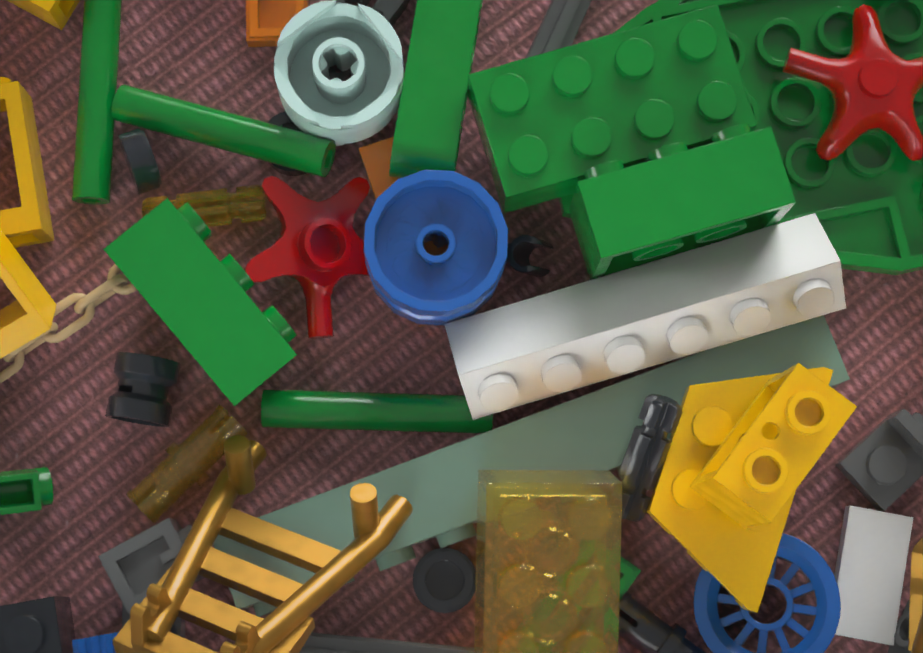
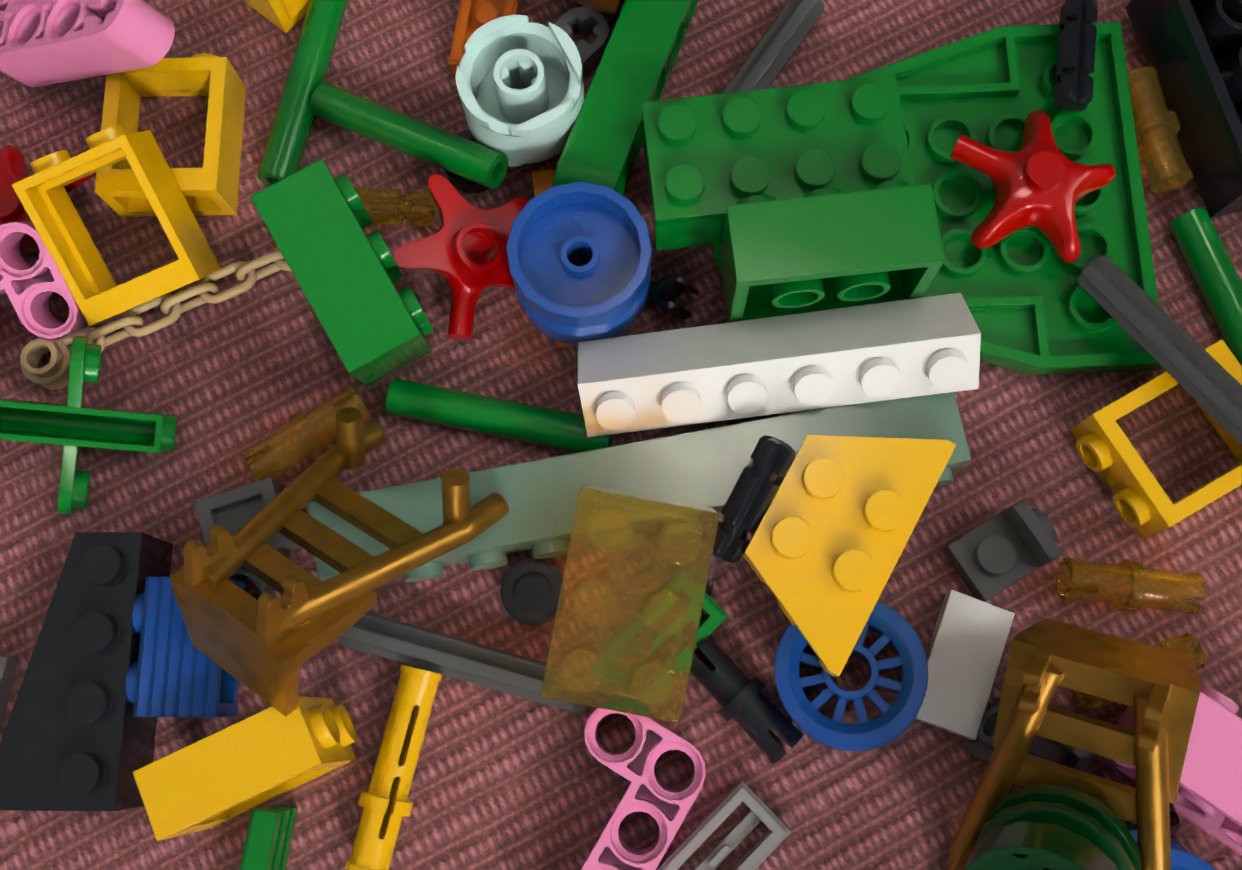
camera: 20 degrees right, 5 degrees down
(140, 160) = (326, 146): black tile -> none
(143, 389) = (282, 355): black wheel -> none
(780, 443) = (884, 494): yellow window -> none

